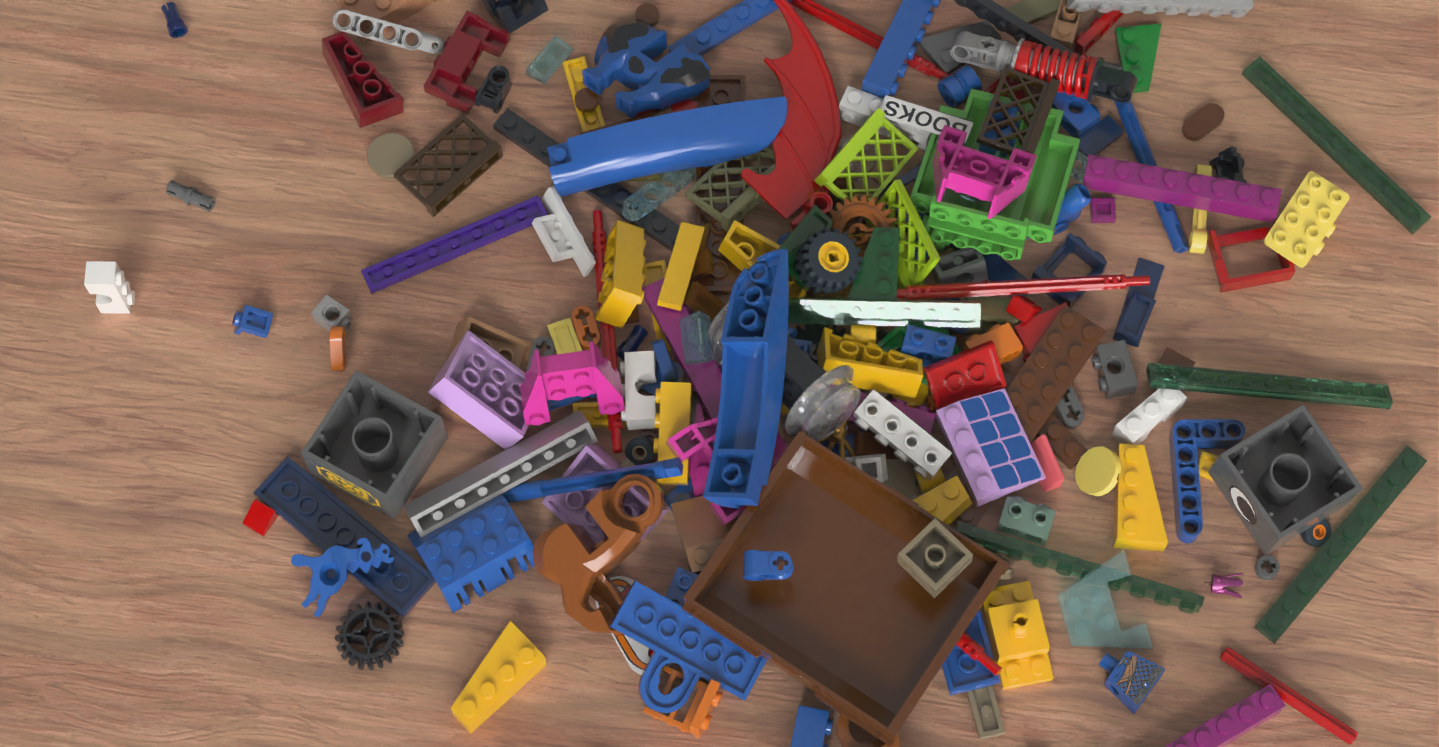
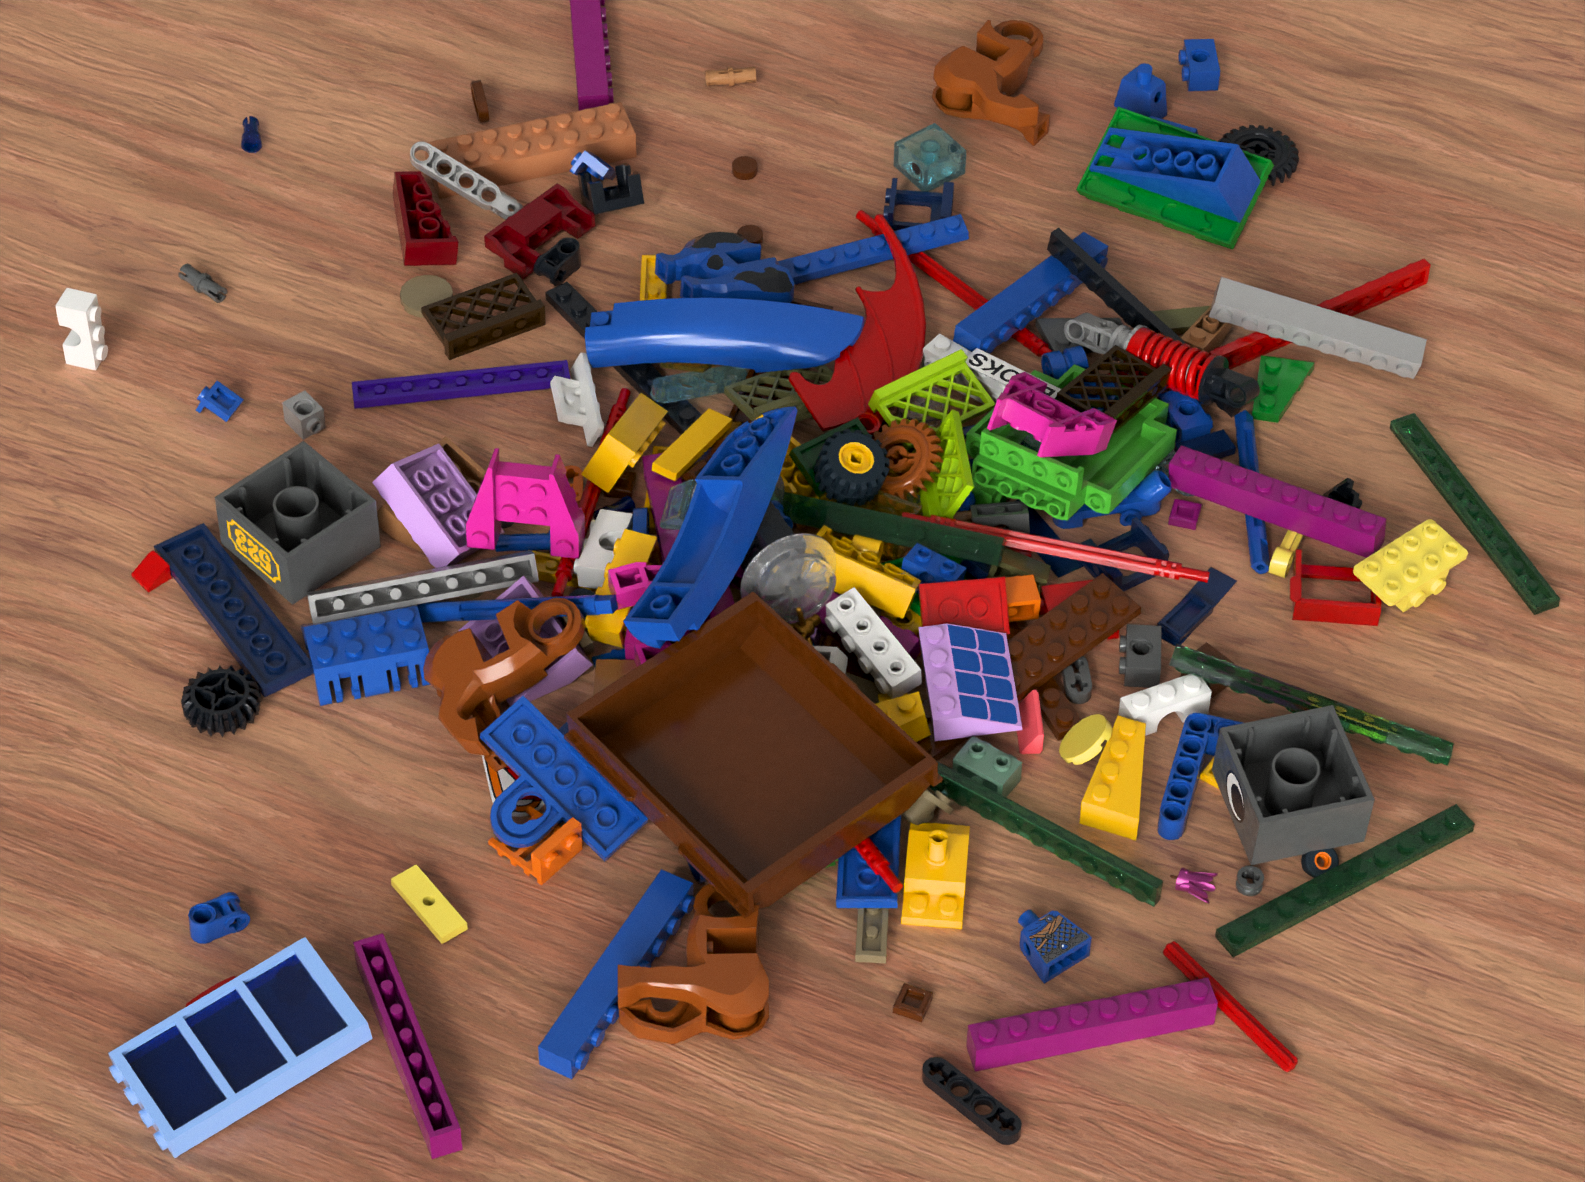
camera: 15 degrees right, 20 degrees down
(332, 568) = (205, 618): blue animal -> none
(338, 348) = (299, 431): orange beam -> none
(500, 675) = (341, 770): yellow wedge -> none
(549, 60) = (627, 249): clear light blue slope -> none
(586, 100) = (653, 289): reddish brown tile -> none
(763, 565) = (664, 698): blue piece -> none
(879, 267) = (908, 485): dark green wing -> none
(934, 558) = (853, 728): dark tan brick -> none
(1023, 308) = (1056, 570): red slope -> none
(1091, 612) = (1027, 867): clear light blue wing -> none
(1203, 122) = (1329, 460): reddish brown tile -> none

